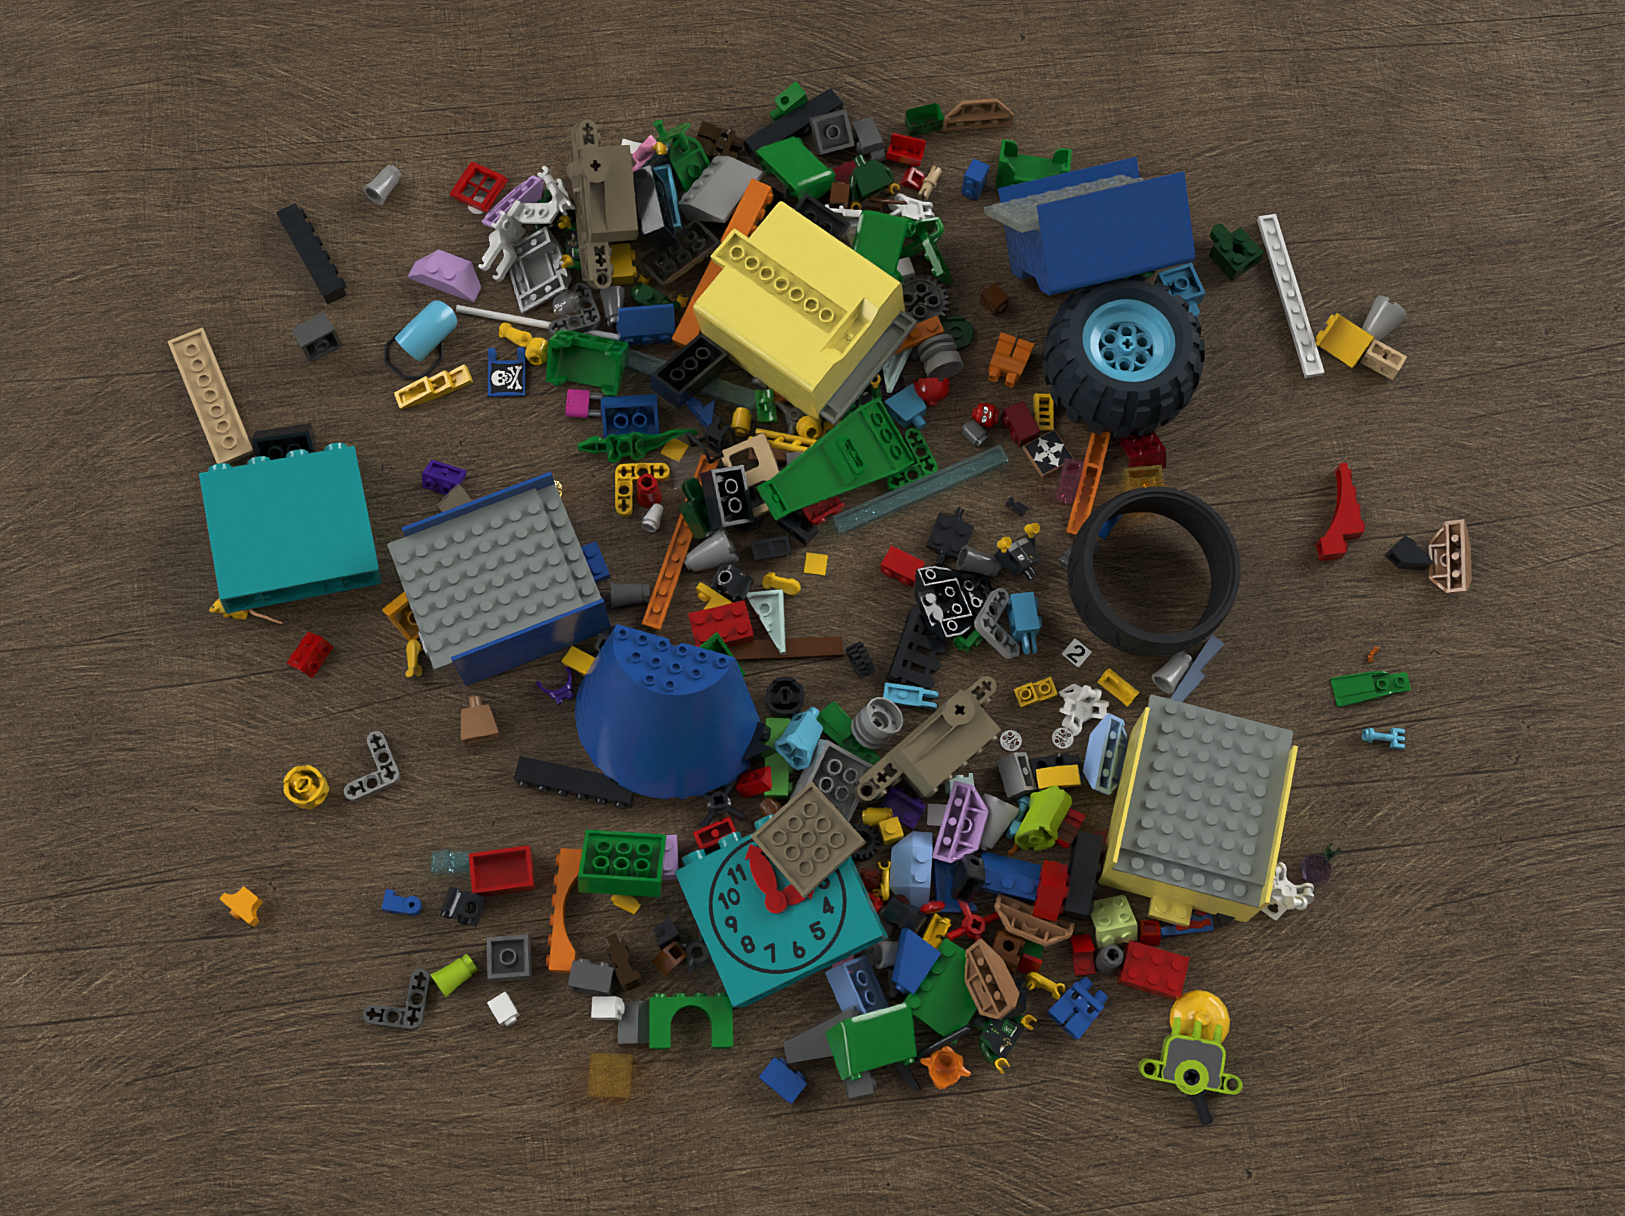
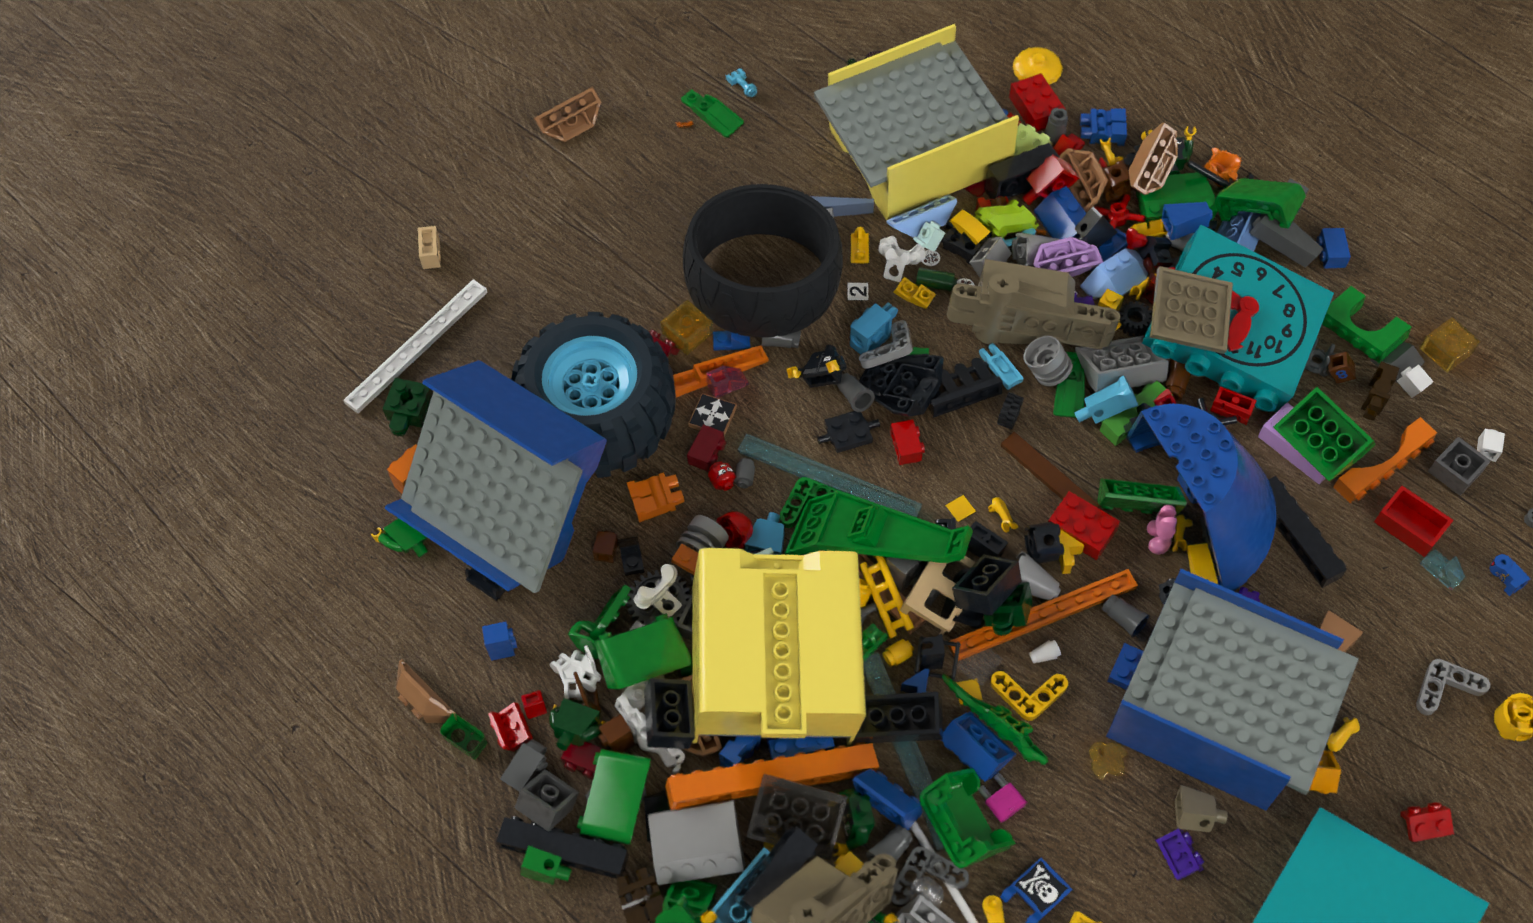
camera: 125 degrees left, 10 degrees down
(454, 974) = (1509, 494): lime plant -> none
(463, 906) = (1468, 523): black brick -> none
(537, 350) = (993, 879): yellow head -> none
(592, 978) = (1411, 399): dark grey brick -> none
(648, 491) = (1029, 671): red plant -> none
(668, 933) = (1332, 377): black hinge -> none
(770, 610) = (1031, 506): light aqua wing -> none
(784, 697) = (1090, 438): black brick -> none
(921, 292) = (652, 596): none -> white piece
(929, 183) = (527, 685): tan pin -> none
(959, 329) = (658, 554): dark green tile -> none
(978, 315) = (631, 556): none -> black slope
(1018, 507) = (779, 402): black piece -> none
(1020, 168) = (446, 605): green windscreen -> none
(1033, 717) = (936, 279): none -> dark green brick
(1044, 397) = (667, 448): yellow slope -> none
(1078, 742) = (930, 236): none -> light aqua brick
(1199, 1056) = (1074, 47): piece -> none
(1344, 340) = (433, 278): yellow panel -> none
(1346, 519) = (593, 195): red arch -> none
(1383, 317) = (395, 268): light grey cone -> none
(1408, 555) = (588, 144): black slope -> none

